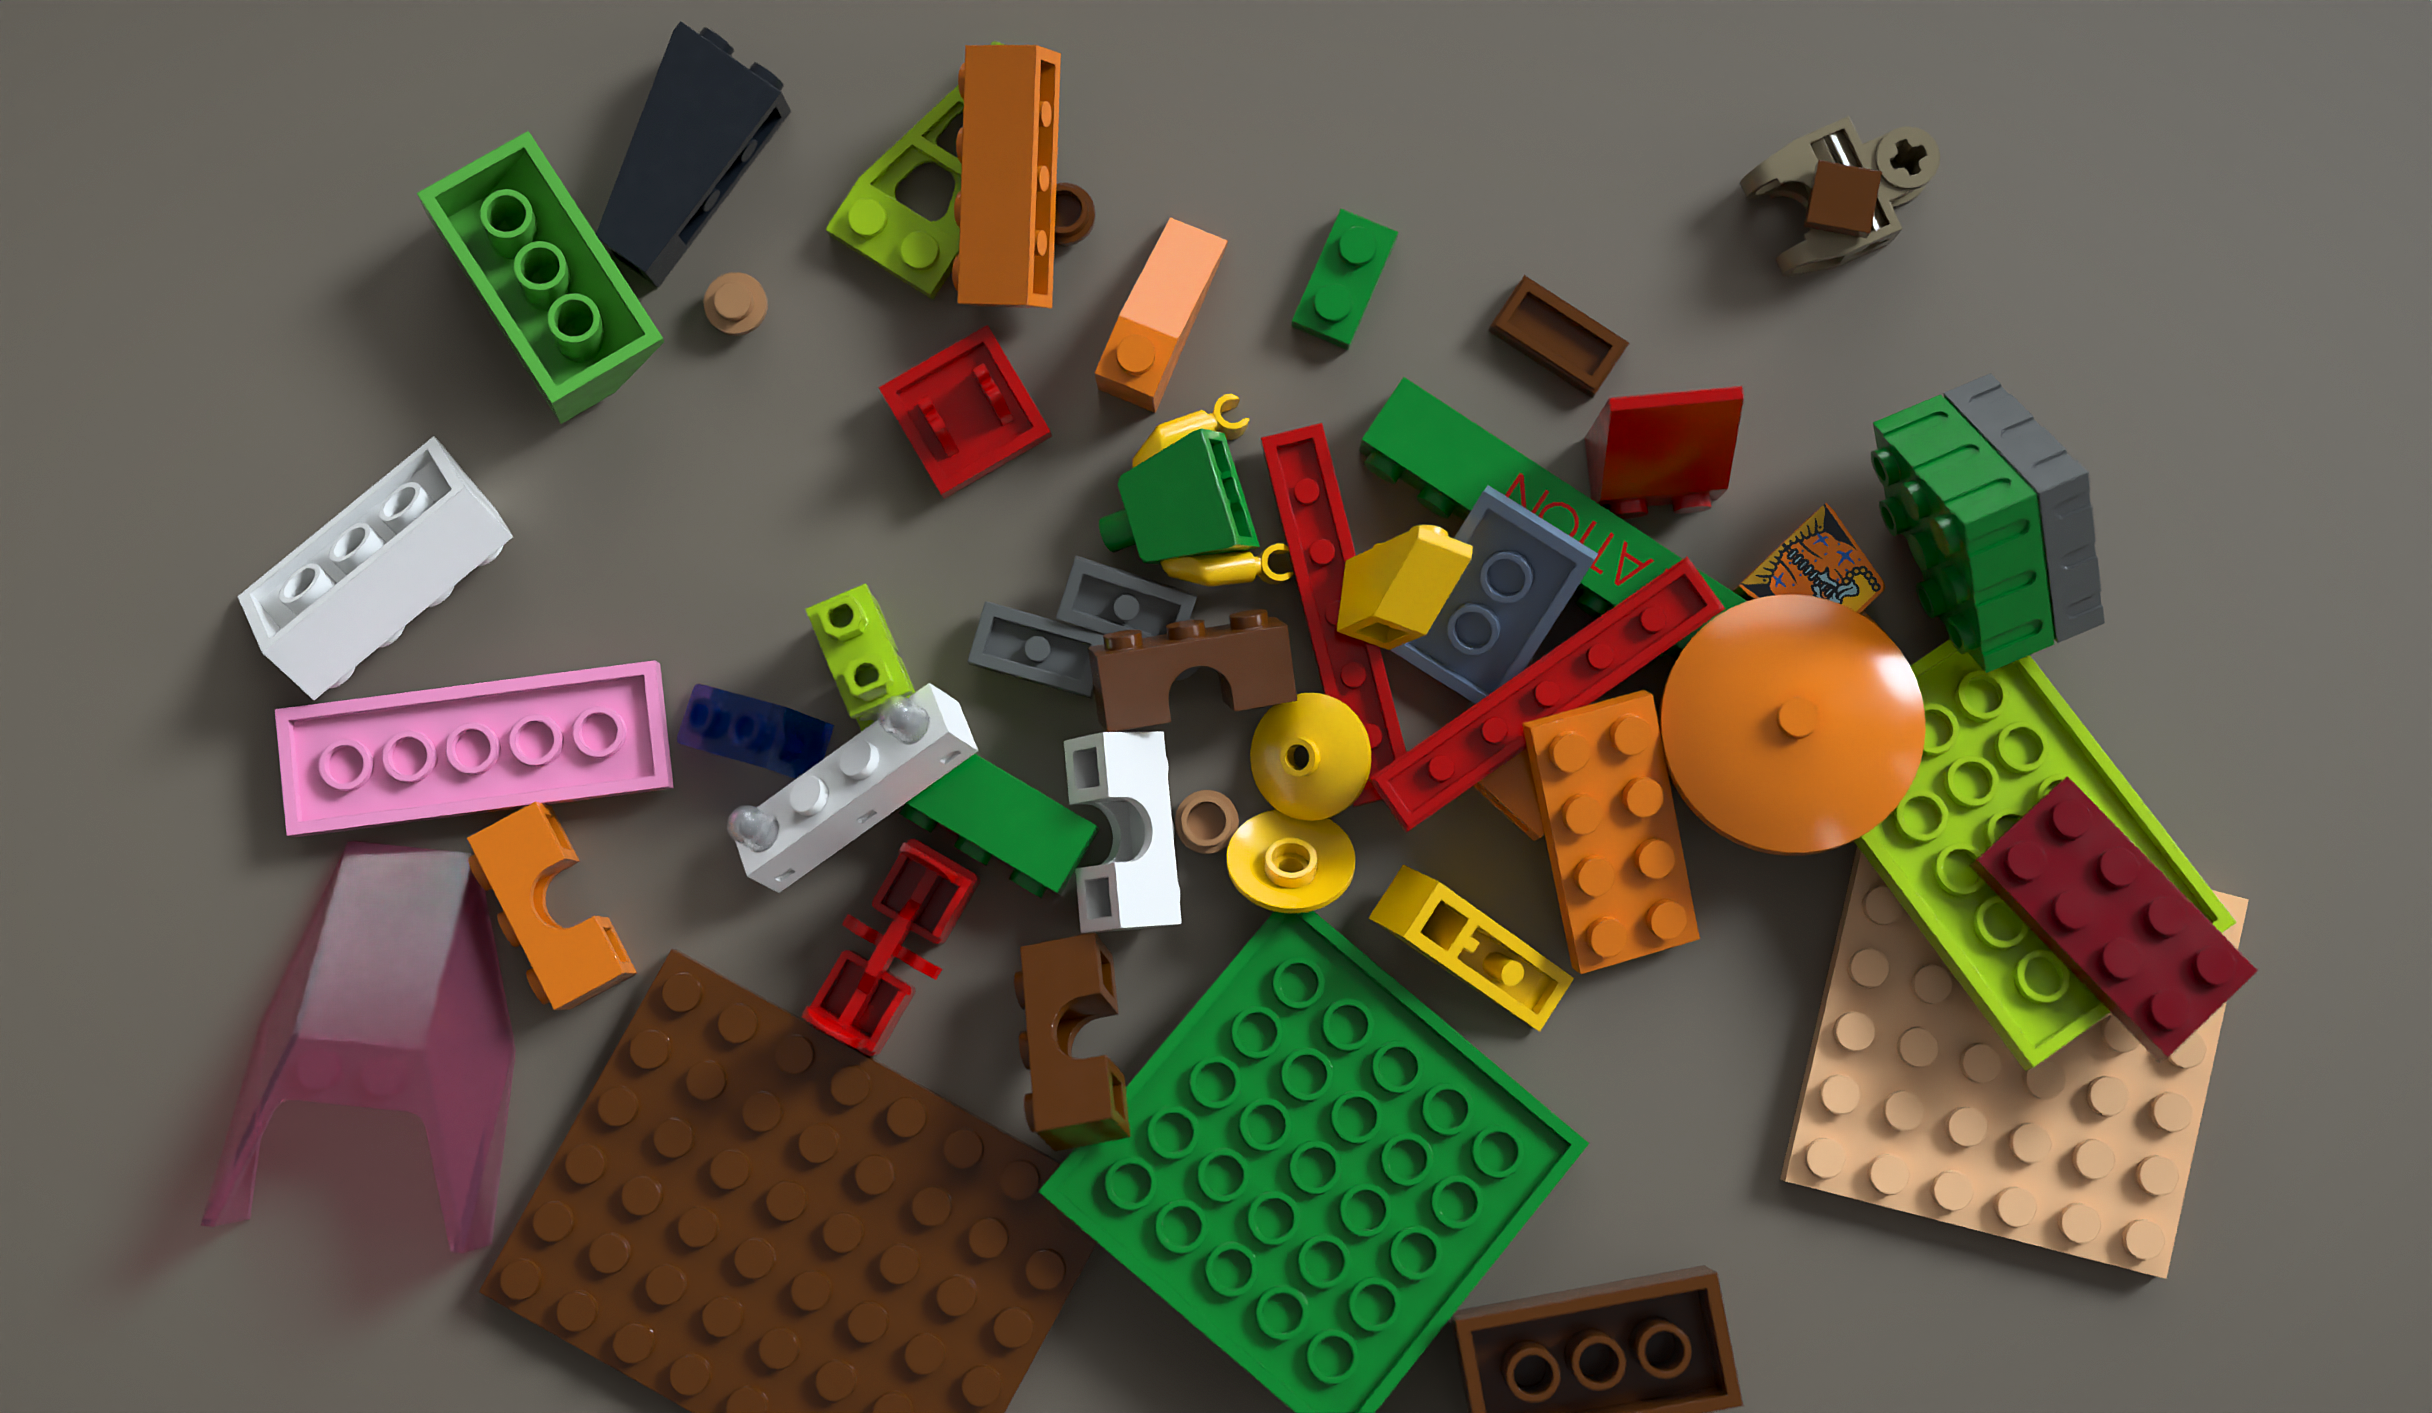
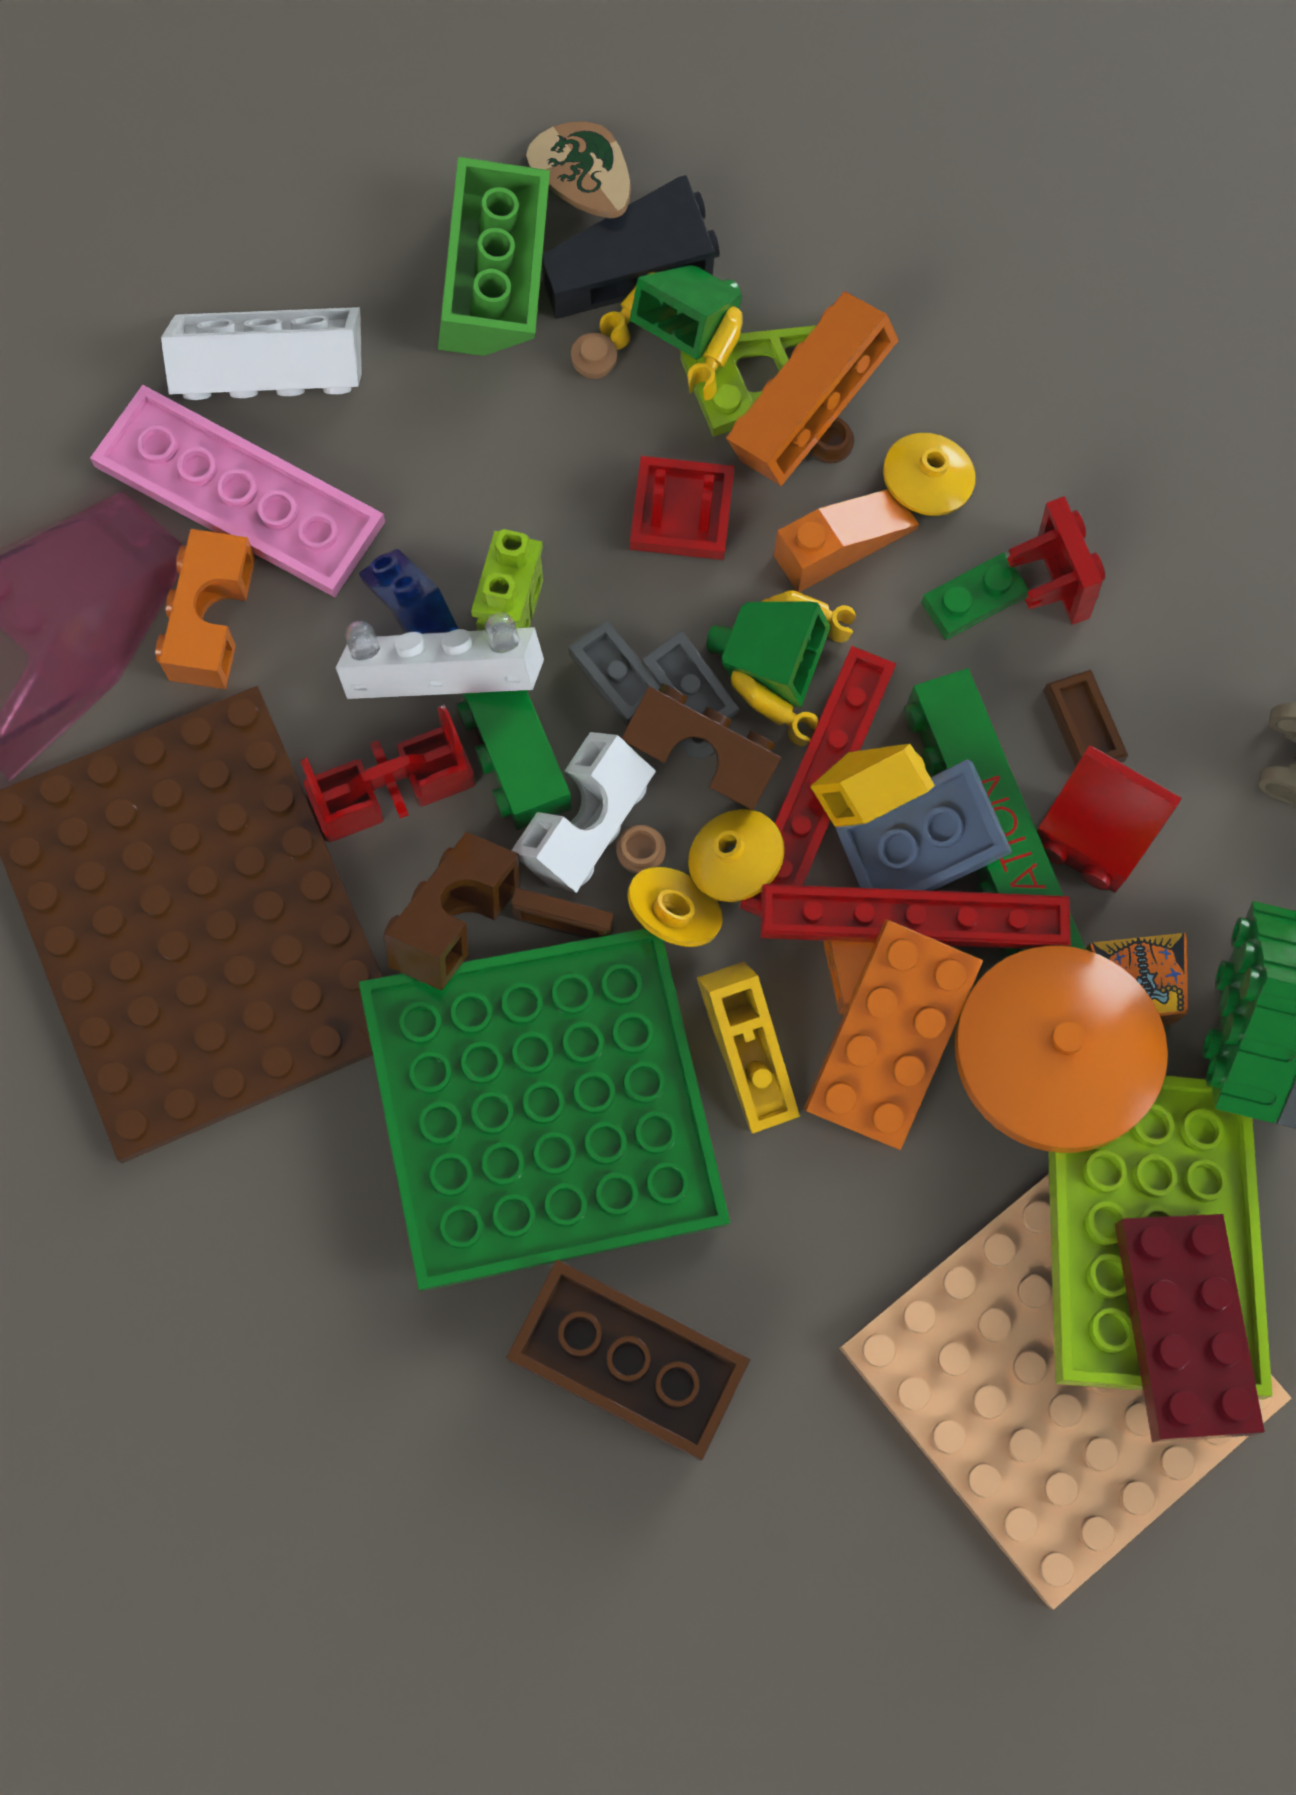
camera: 30 degrees right, 10 degrees down
(556, 90) = (583, 167): none -> shield
(806, 184) = (686, 311): none -> green torso
(1182, 956) = (561, 914): none -> reddish brown tile
(1190, 198) = (924, 487): none -> yellow dish
(1442, 187) = (1073, 569): none -> red plate

